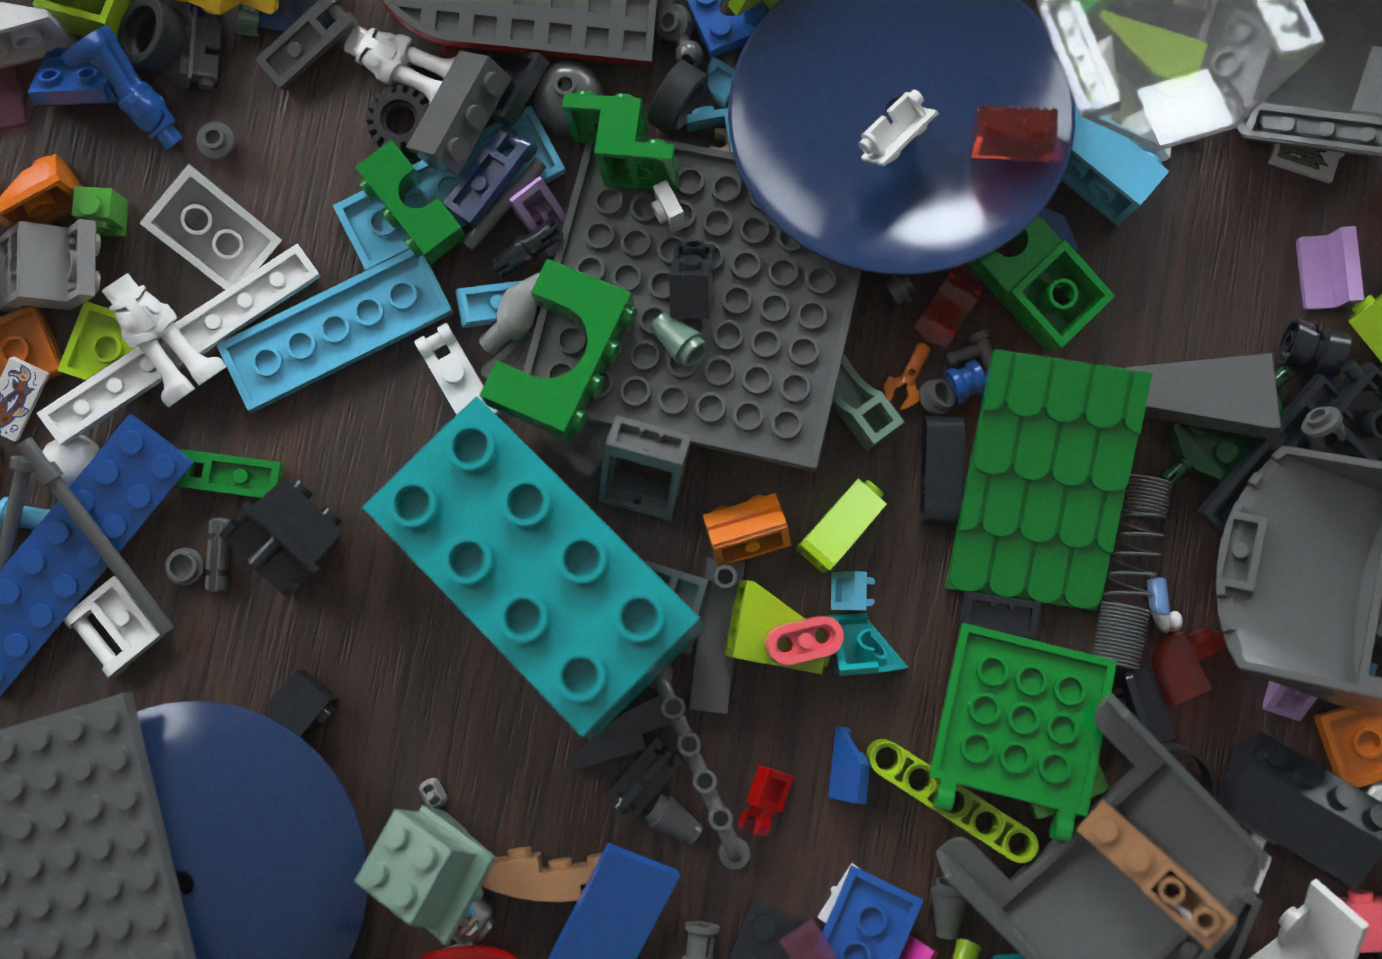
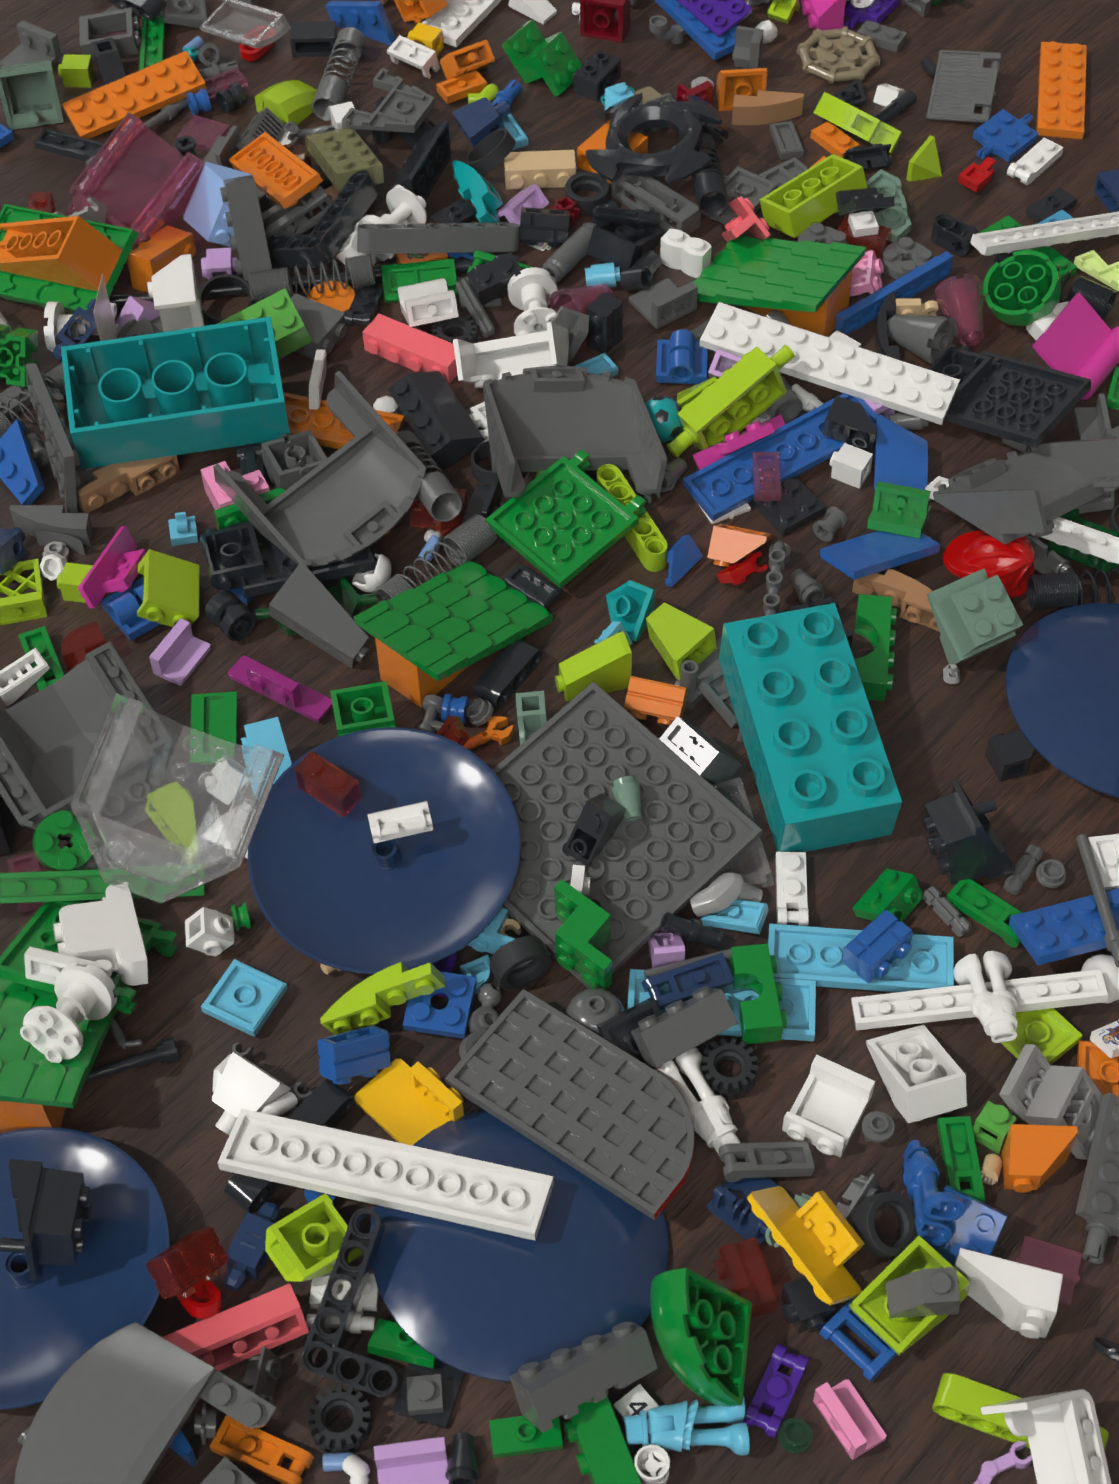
camera: 145 degrees left, 30 degrees down
(90, 171) = (991, 1168): none -> tan piece
(121, 160) = (960, 1155): none -> green plate
(275, 448) = (946, 911): none -> dark grey axle
(280, 137) = (828, 1106): none -> white panel
(312, 334) = (877, 947): none -> blue brick
(343, 423) = (892, 892): none -> green bracket
(561, 401) = (731, 801): green arch -> none
(561, 815) = (873, 622): none -> green arch
(794, 839) = (733, 543): none -> slope
(802, 640) = (664, 614): coral plate -> none
(1156, 874) = (546, 410): medium nougat slope -> none
(1184, 291) = (280, 688): none -> magenta bracket
(1185, 512) = (375, 578): none -> white hair
(1208, 662) = (434, 484): none -> dark grey piece
(1214, 199) = (215, 714): none -> green piece
(1322, 422) = (270, 560): dark grey plate -> none

